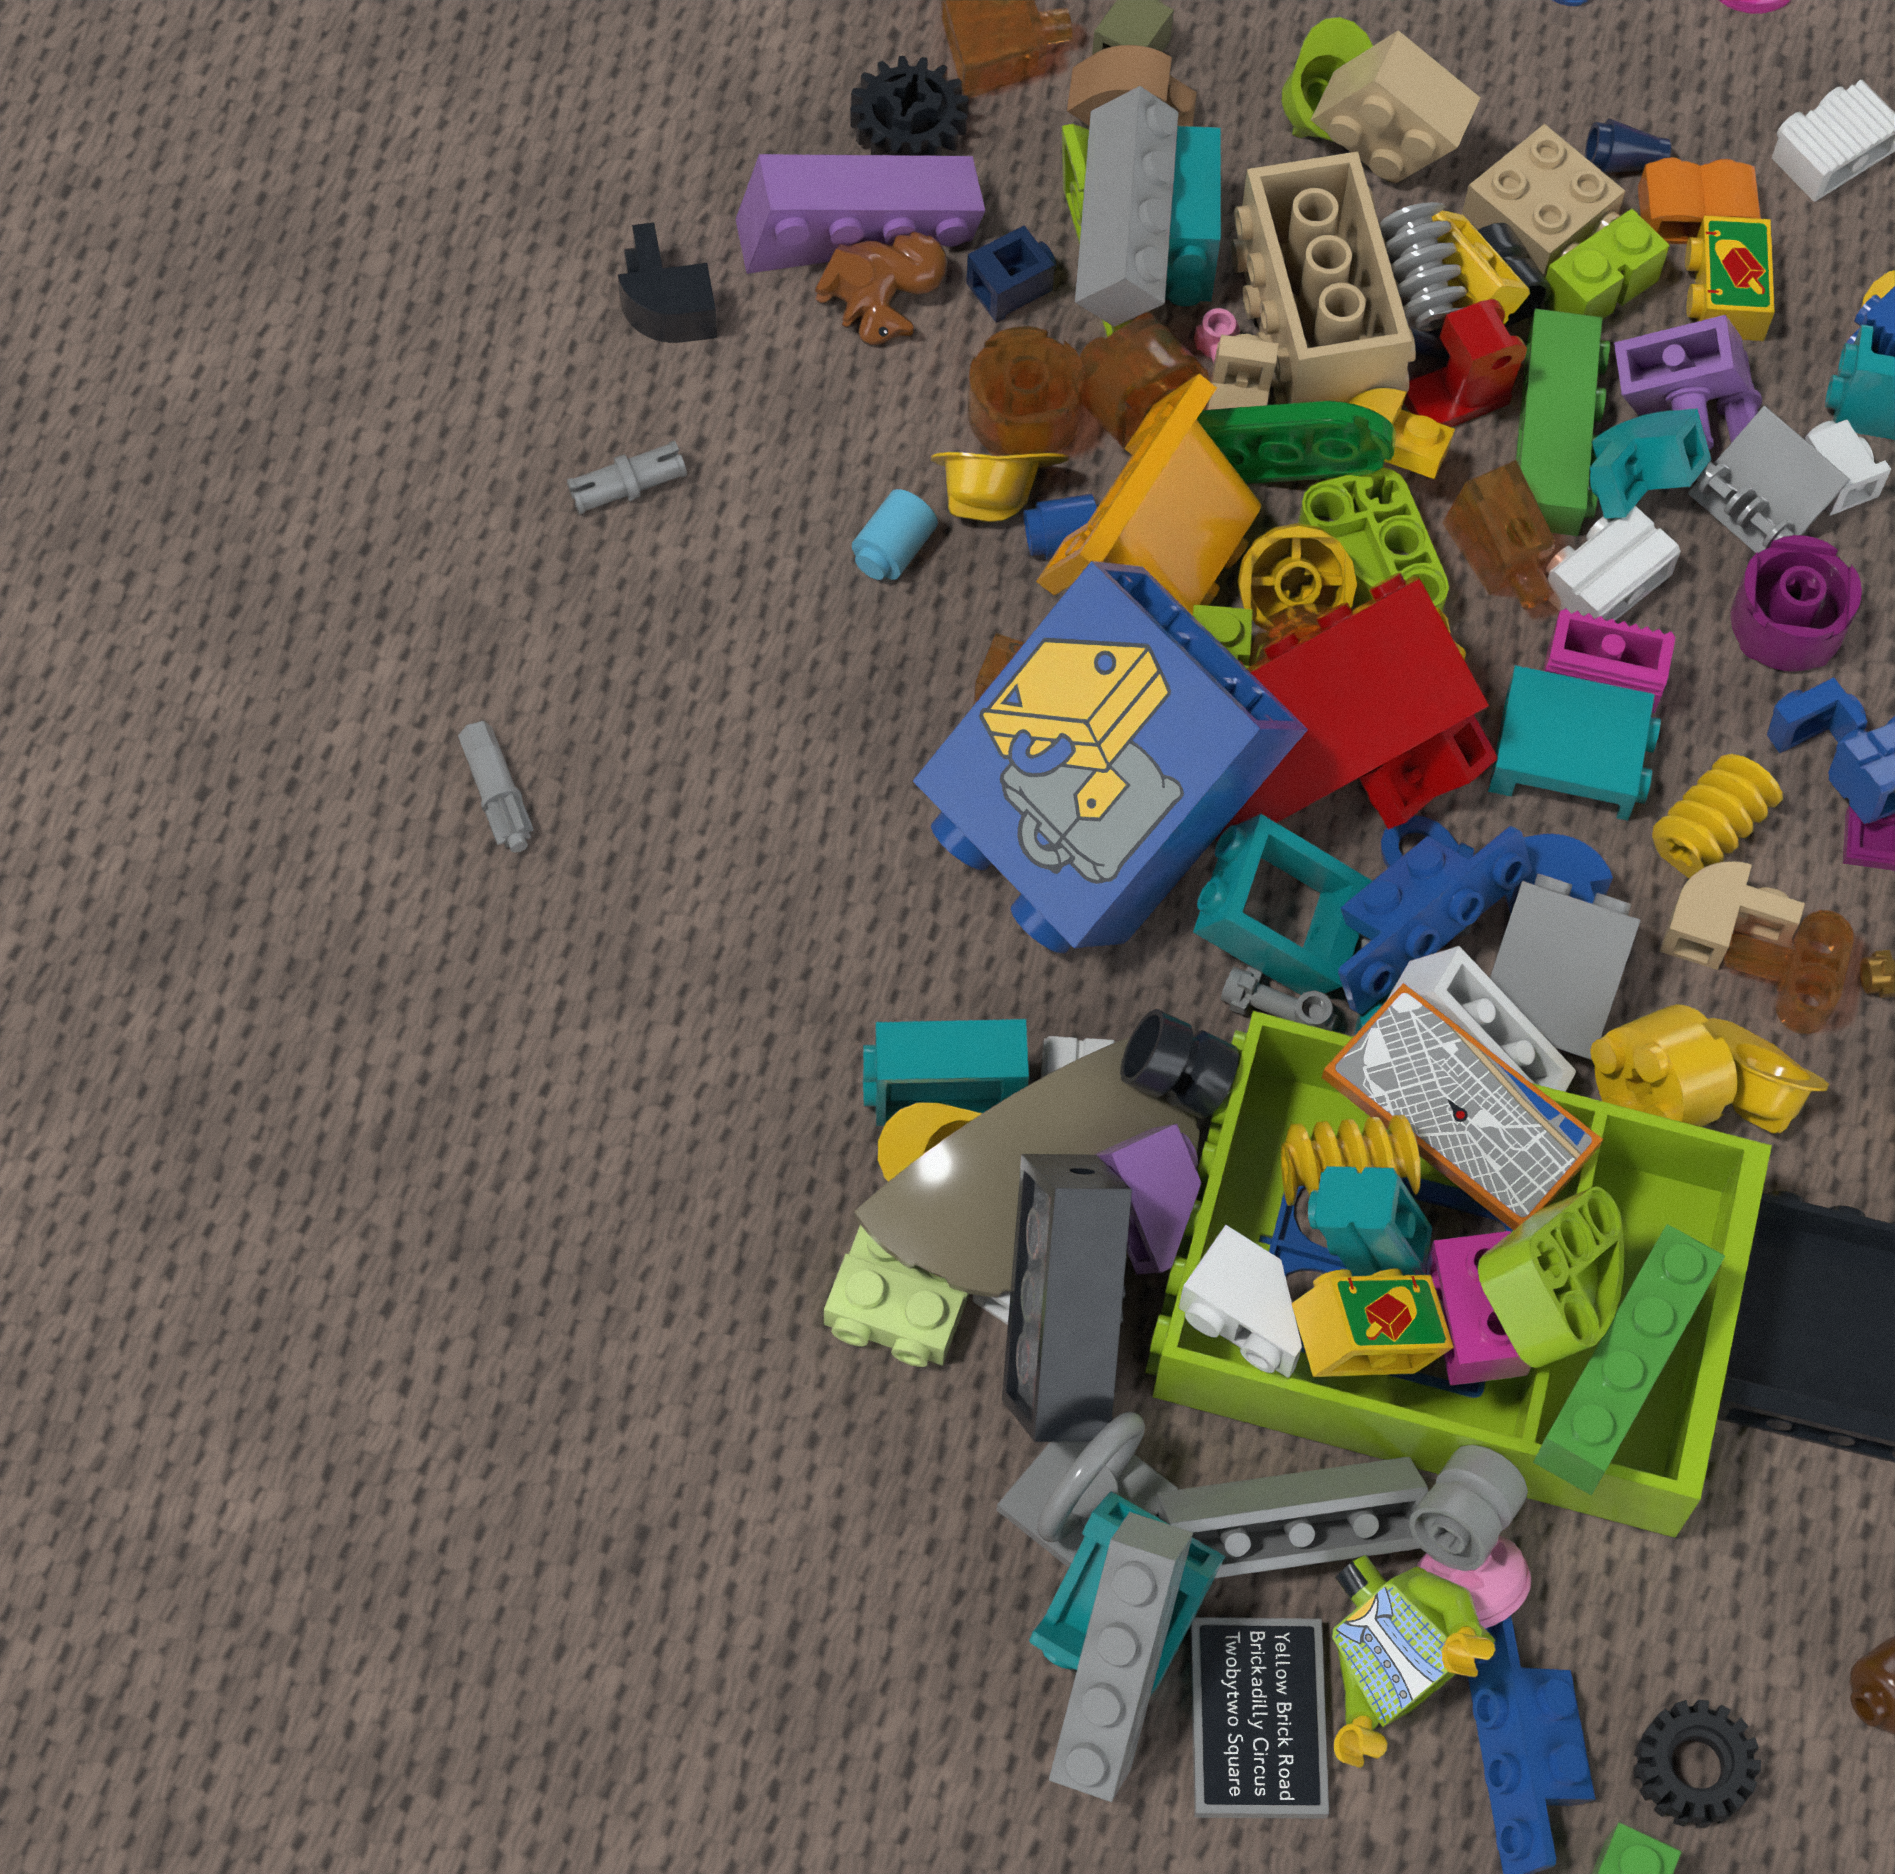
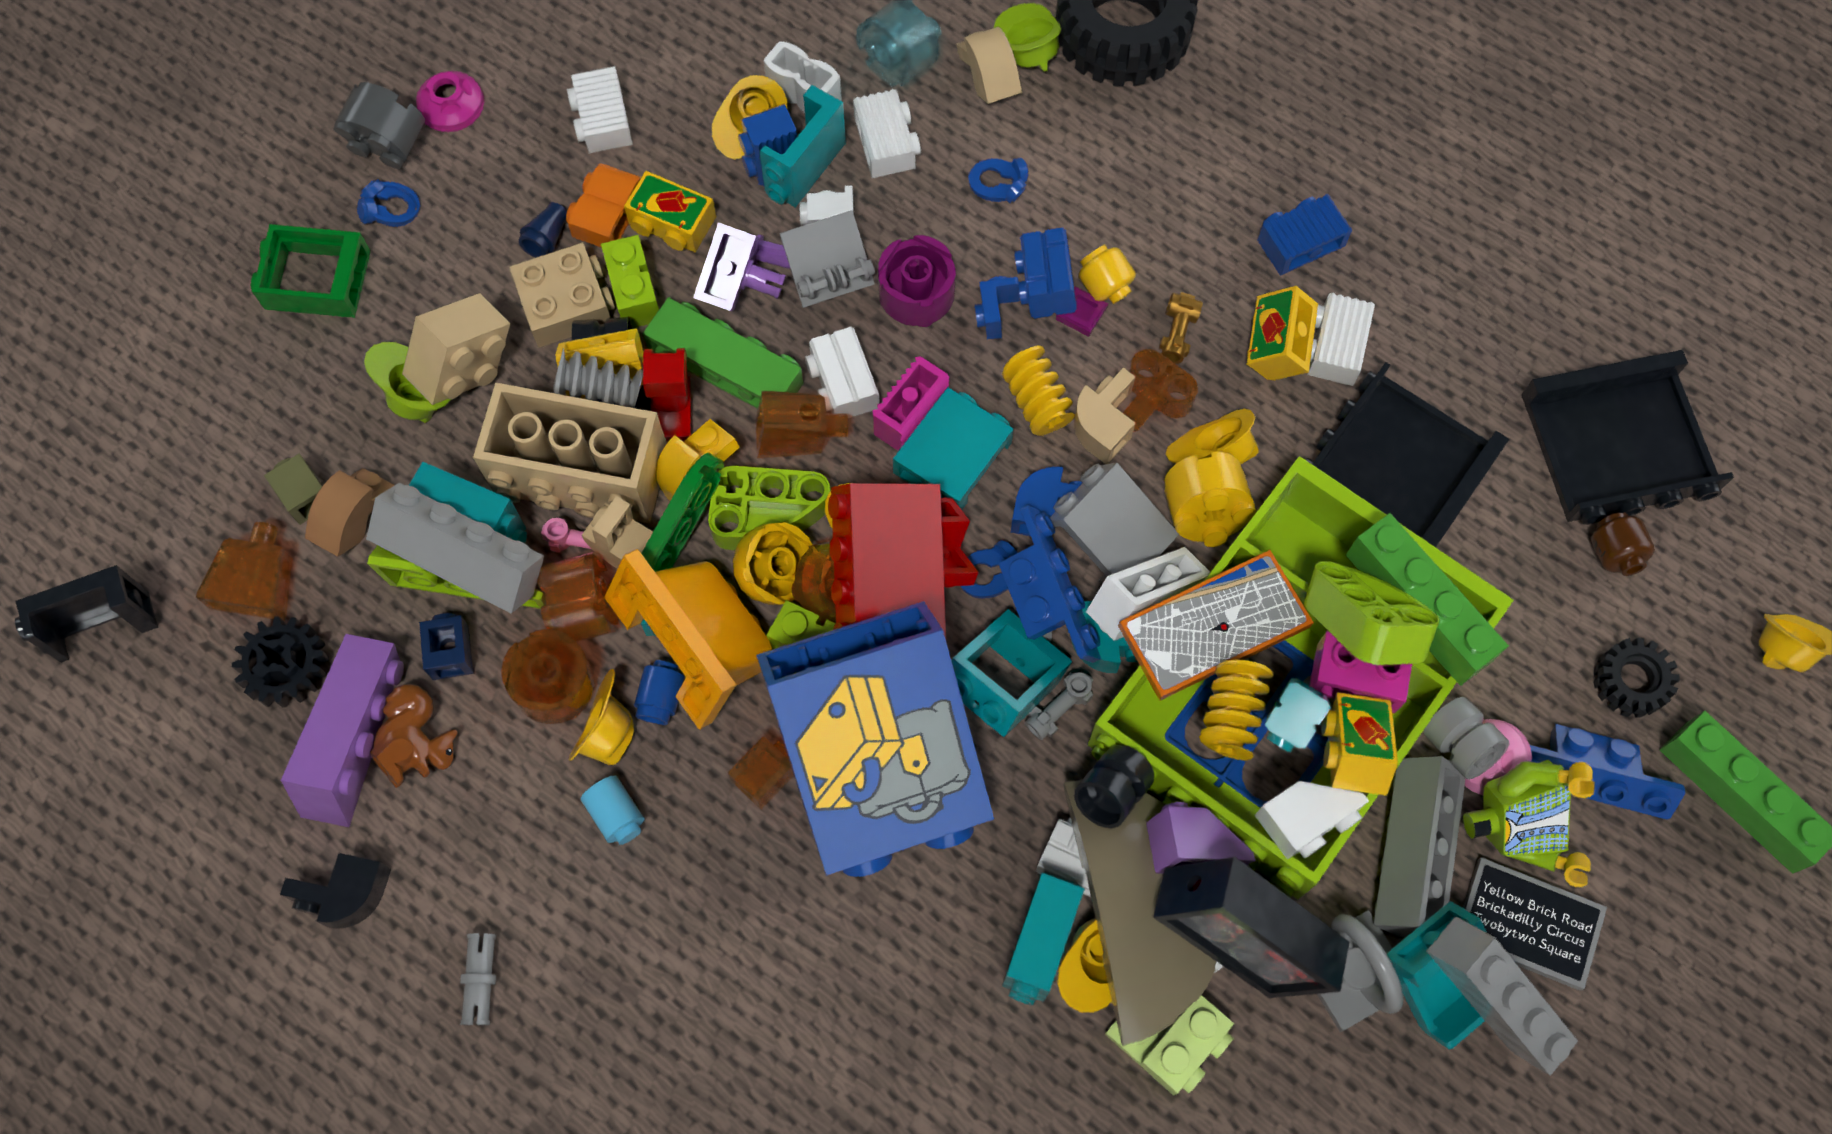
camera: 65 degrees left, 5 degrees up
(1647, 455) = (778, 315): teal brick -> none

